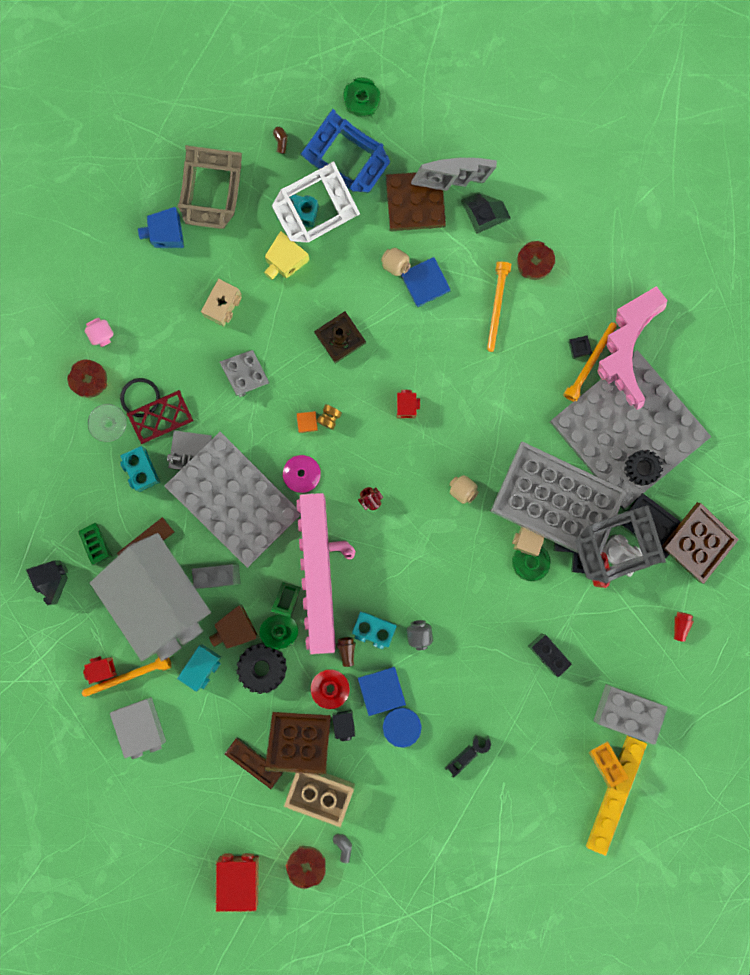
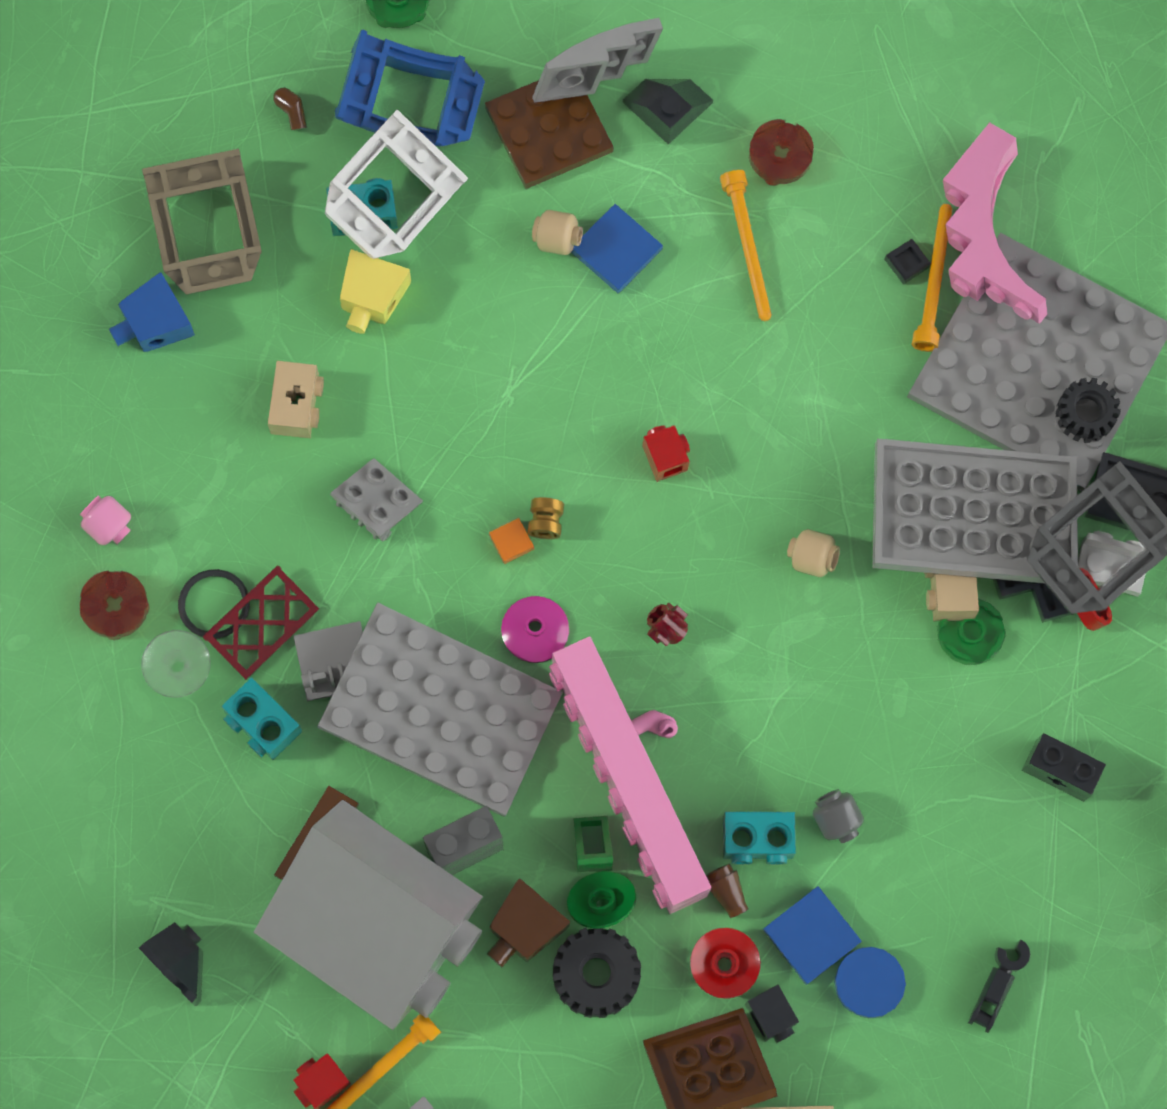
camera: 25 degrees left, 10 degrees down
(103, 546) = (253, 889): green slope -> none
(199, 668) = (491, 1012): teal brick -> none
(341, 326) = (510, 365): dark brown plate -> none

